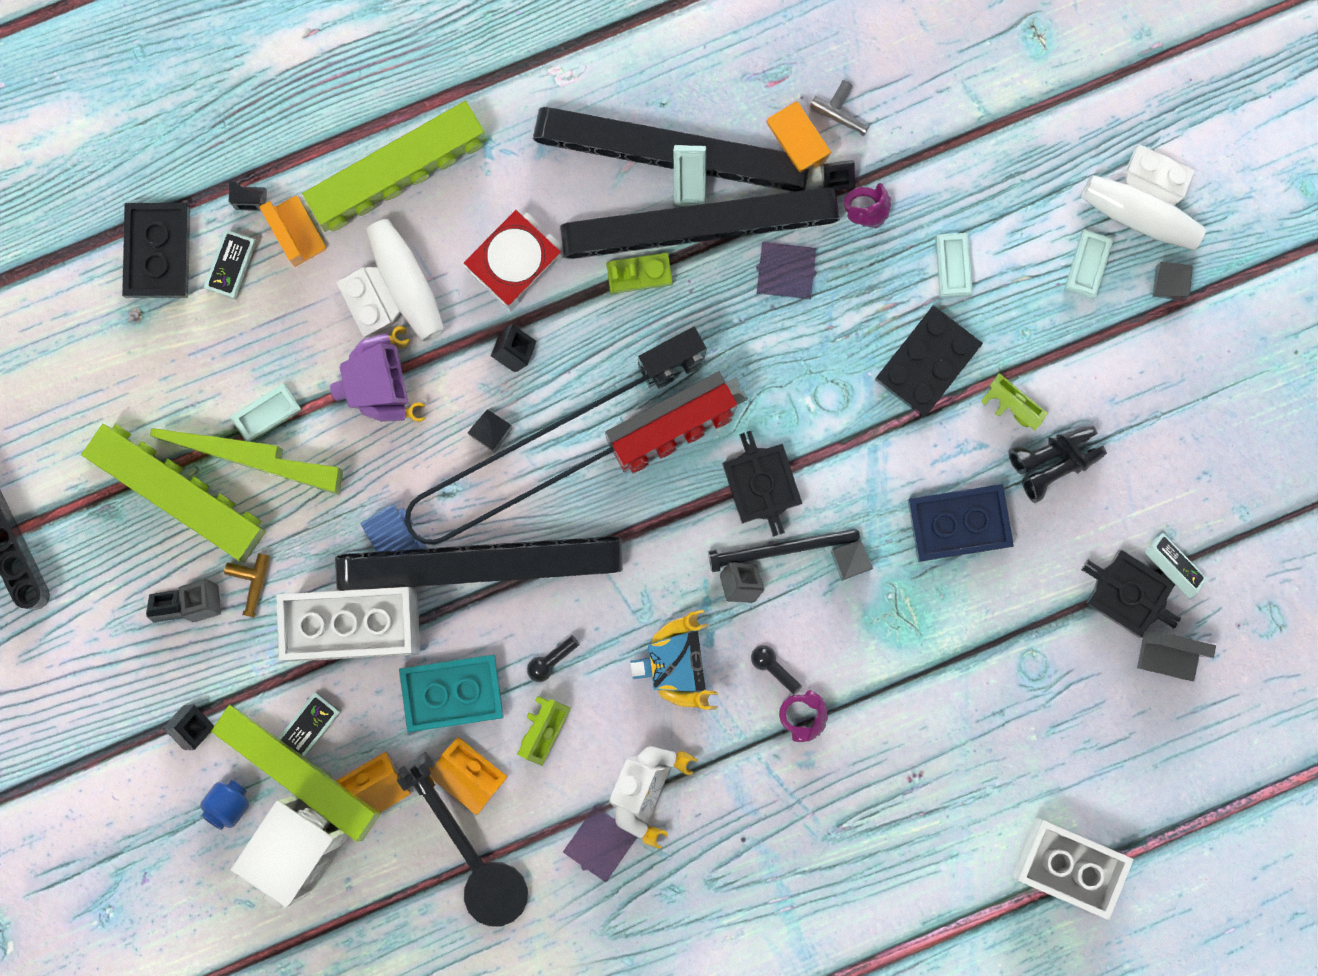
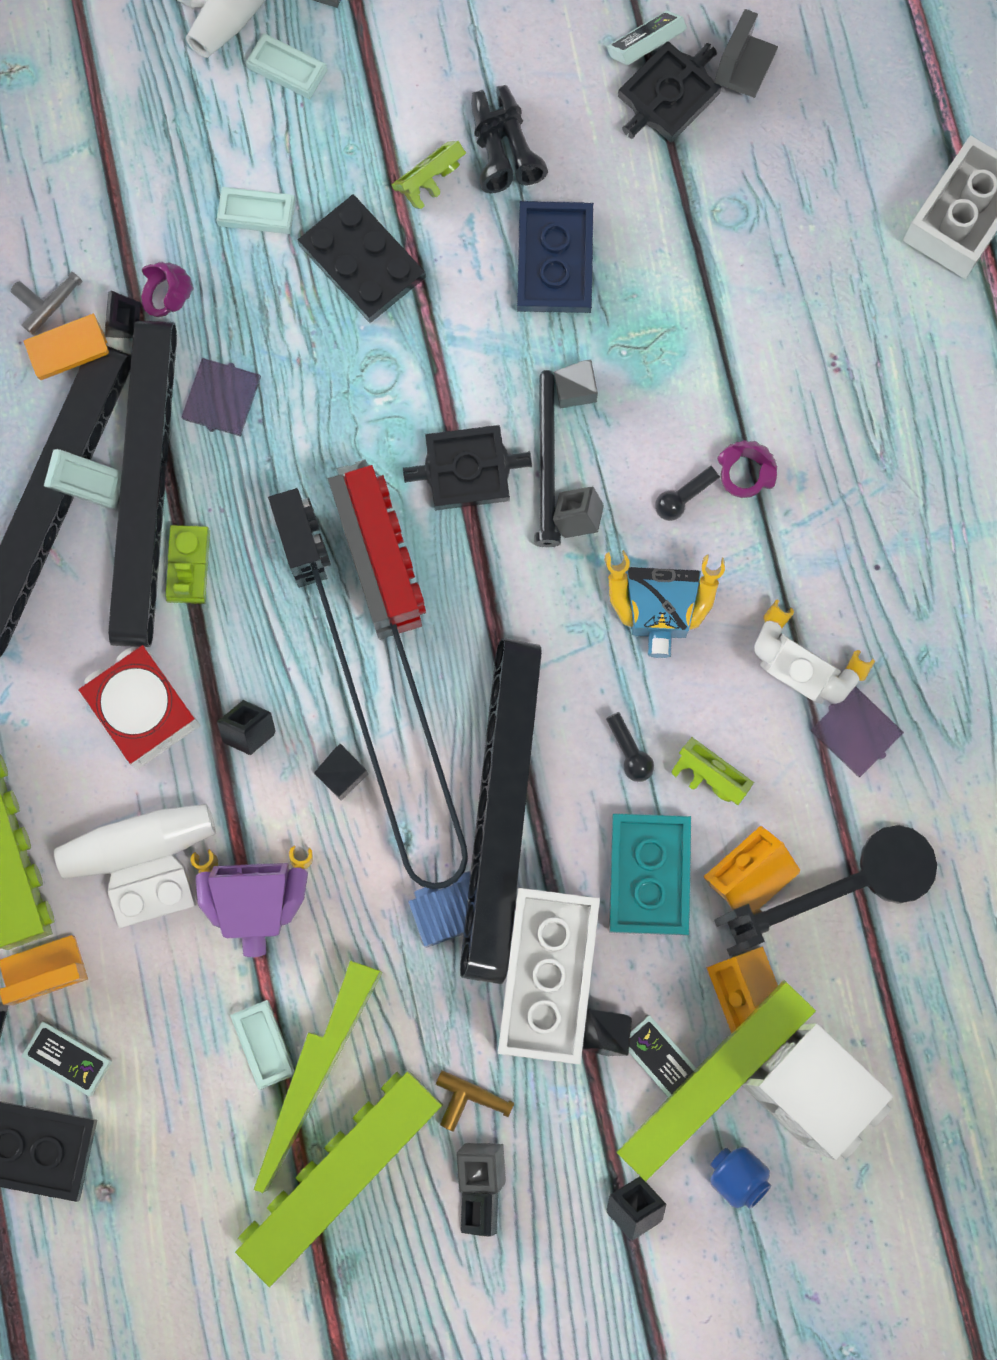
camera: 75 degrees left, 5 degrees down
(318, 679) = (607, 1033): none -> black slope

